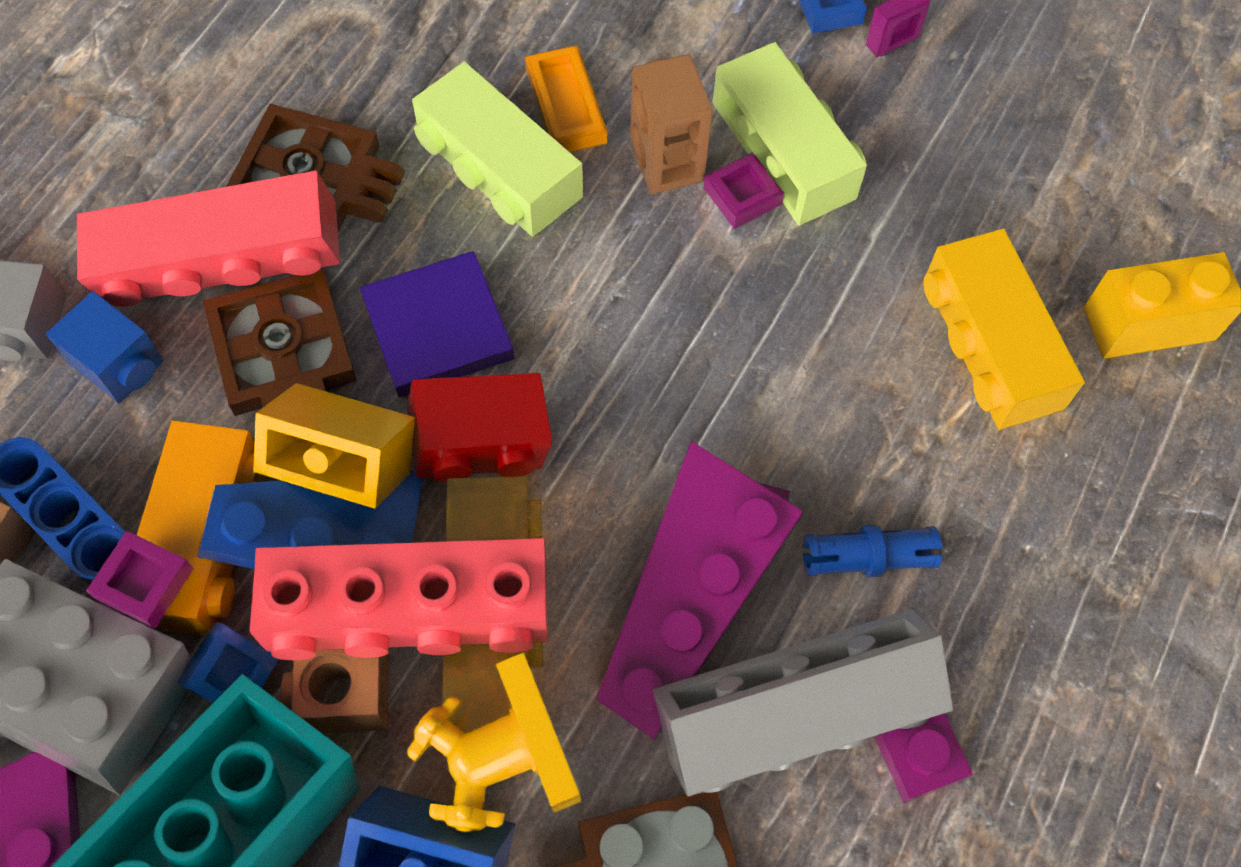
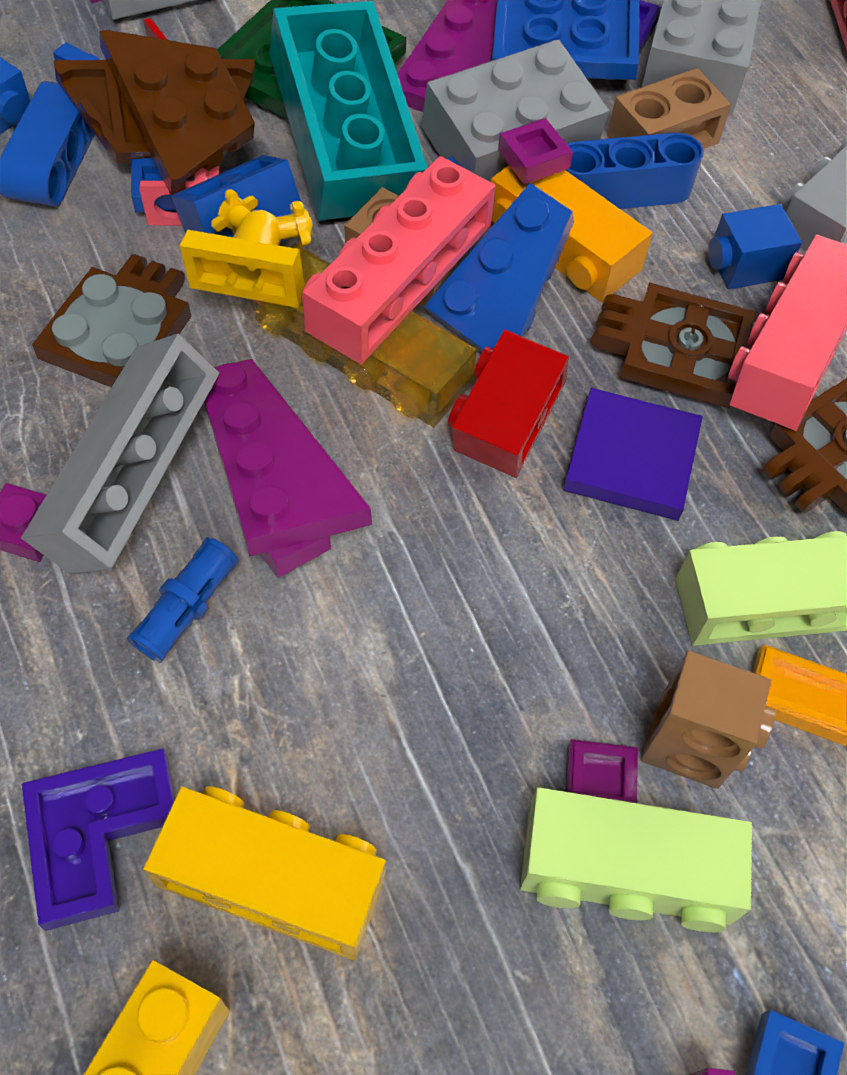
camera: 125 degrees right, 5 degrees down
(333, 445) = (559, 295): yellow brick -> none
(1083, 479) = (71, 828): none -> dark purple plate

